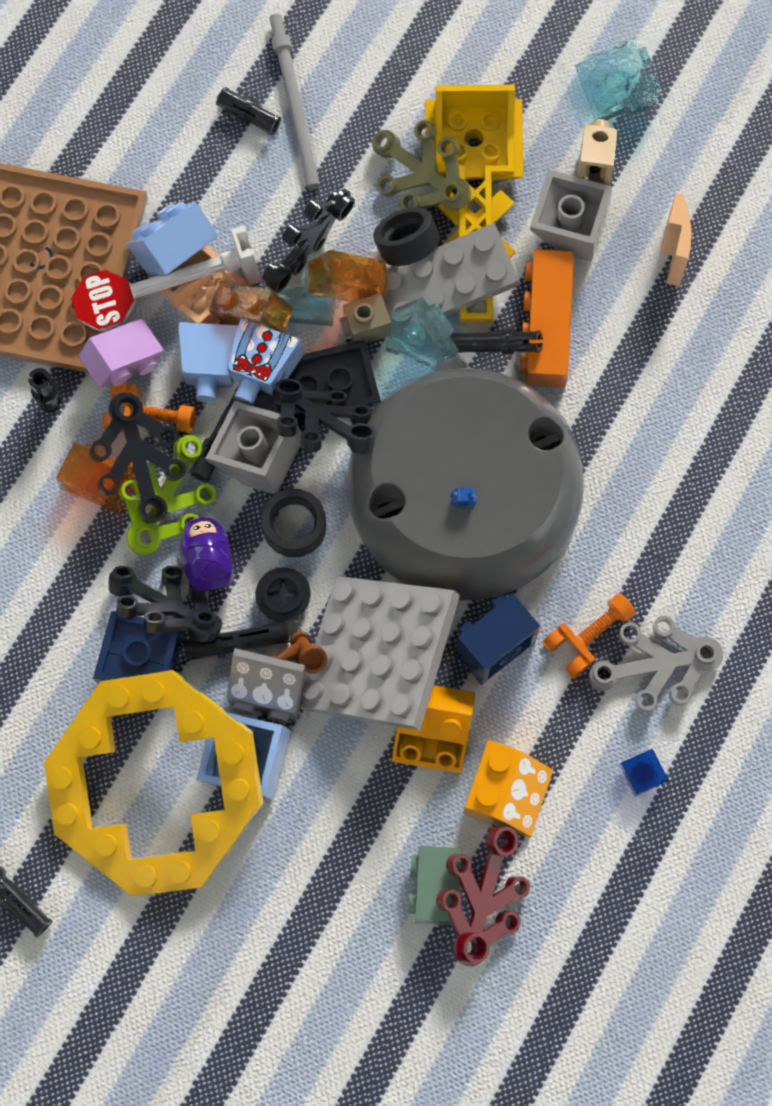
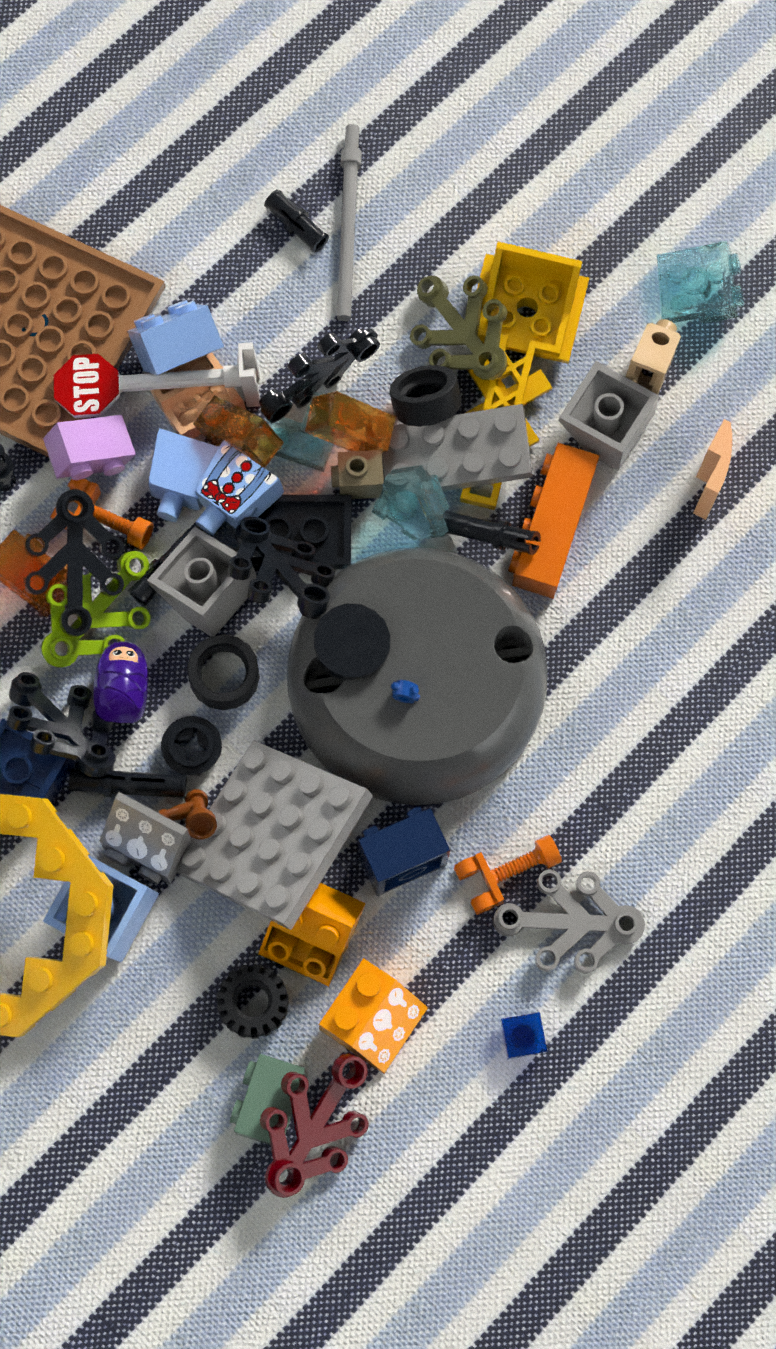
camera: 10 degrees right, 0 degrees up
(399, 825) = (252, 977): none -> black tyre
(404, 465) = (352, 641): none -> black tile

